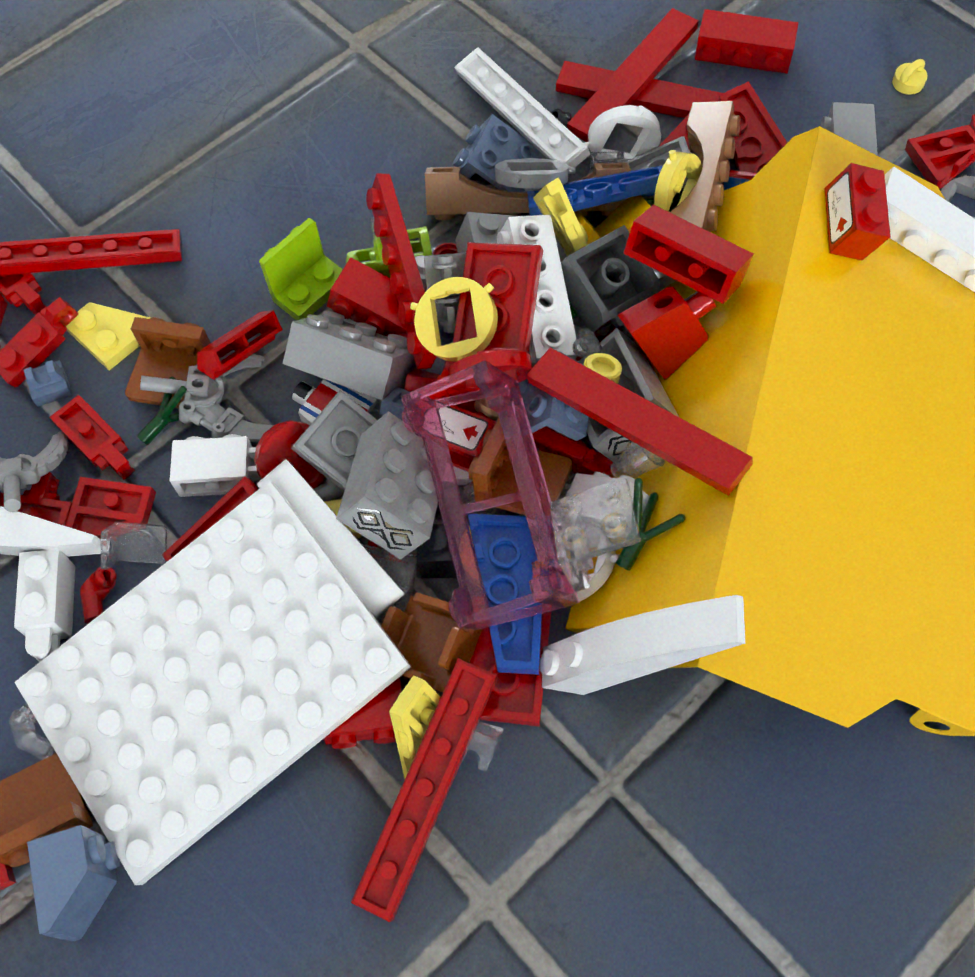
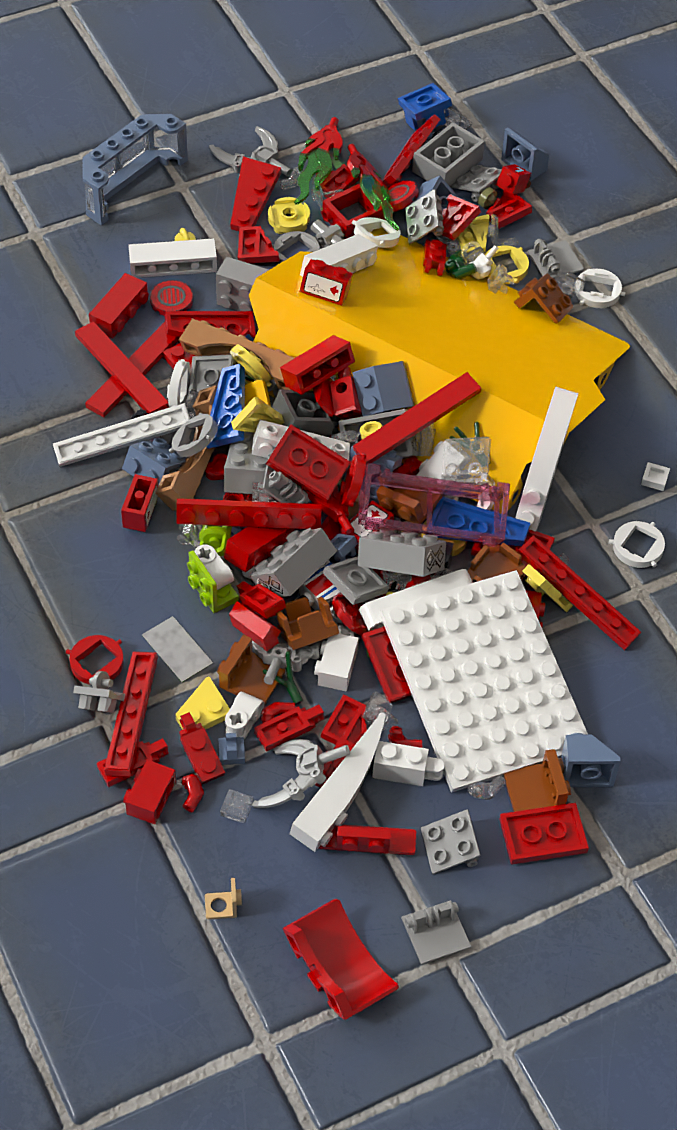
camera: 80 degrees left, 10 degrees down
(89, 209) = (107, 698): none -> light grey hips
(96, 374) = (243, 714): none -> white piece
(115, 409) = (274, 709): none -> red arm
(147, 217) = (85, 647): none -> red piece
(204, 279) = (177, 648): none -> flat silver sticker
(249, 404) = (306, 626): none -> dark orange panel
(270, 339) = (260, 599): none -> red hinge
(314, 267) = (214, 564): none -> white piece
(407, 155) = (139, 503): none -> red brick
(427, 323) = (321, 467): light yellow piece -> none
(570, 909) = (623, 534): none -> white piece
(638, 286) = (323, 396): none -> red slope
(693, 361) = (383, 388): none -> sand blue slope
(750, 874) = (655, 476): none -> white plate
(795, 94) = (171, 296): none -> tile
(865, 69) = (173, 258): none -> white brick

